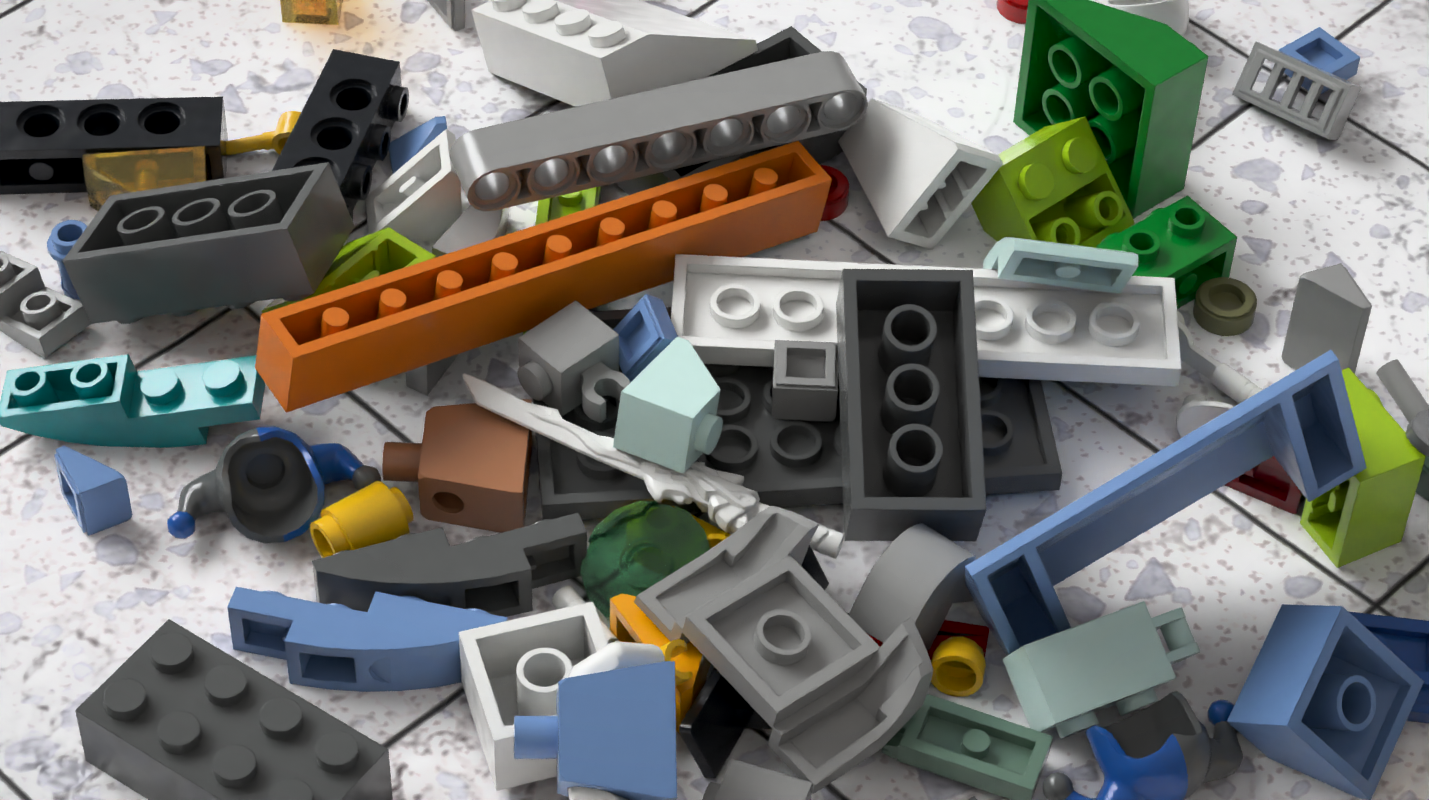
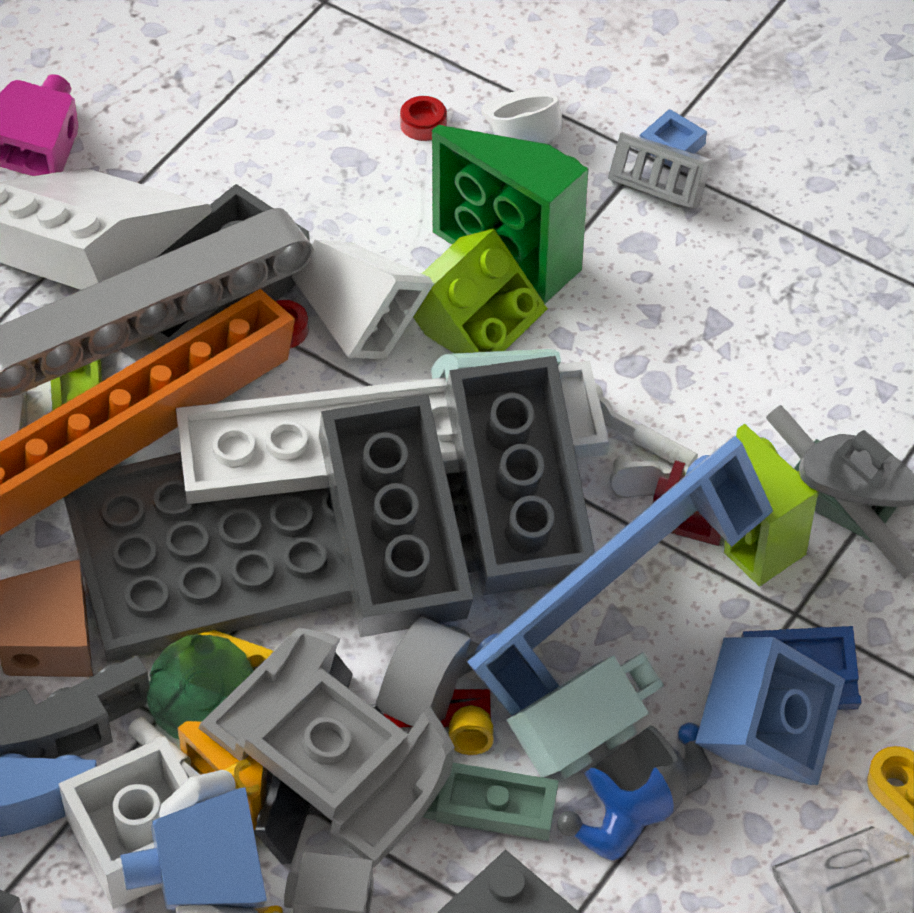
camera: 10 degrees left, 5 degrees up
(571, 362) = (108, 520): light grey brick -> none
(643, 335) = (163, 490): medium blue tile -> none
(670, 410) = (198, 552): light aqua slope -> none
(710, 489) = (218, 611): white sword -> none
(805, 380) = (303, 503): light grey slope -> none
(1063, 375) = (518, 473): none -> dark grey brick
(1180, 245) = (584, 329): green brick -> none
(1224, 306) = (632, 371): olive tile -> none
(1326, 316) = (719, 382): light grey slope -> none

